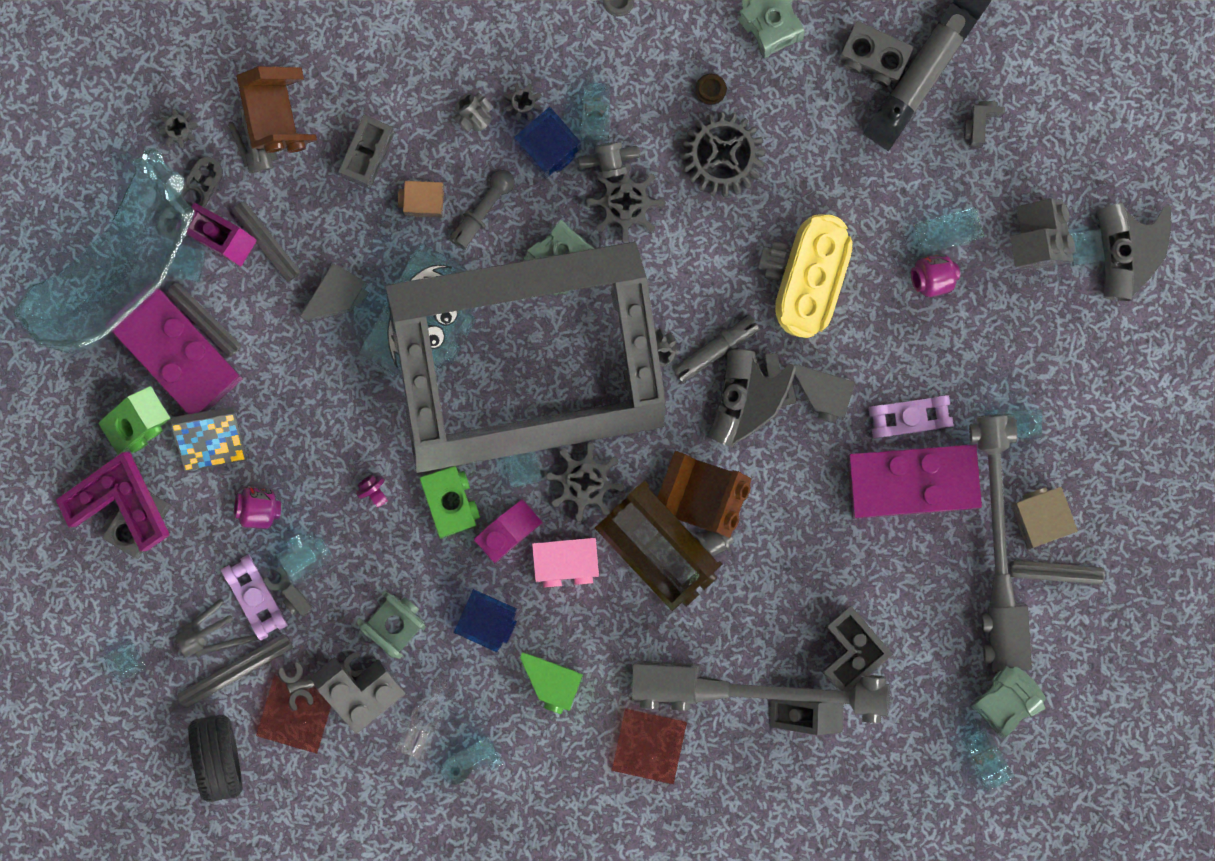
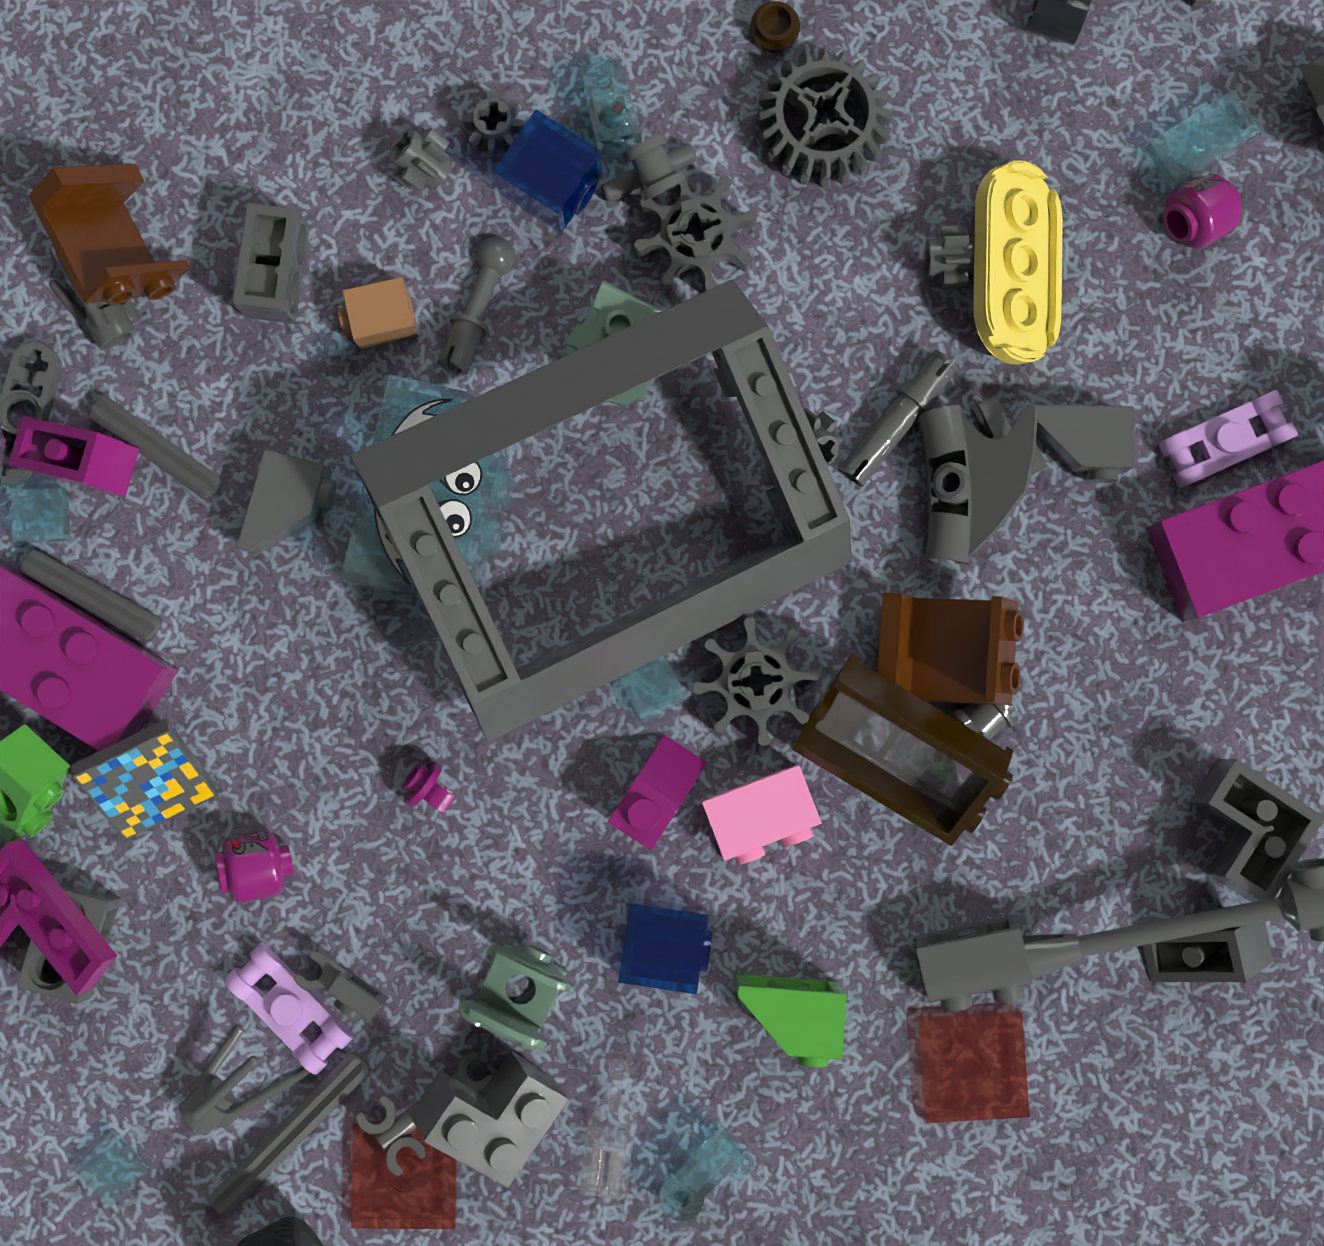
camera: 15 degrees left, 0 degrees up
(304, 557) = (346, 926): clear light blue brick -> none
(436, 487) = (524, 757): bright green brick -> none

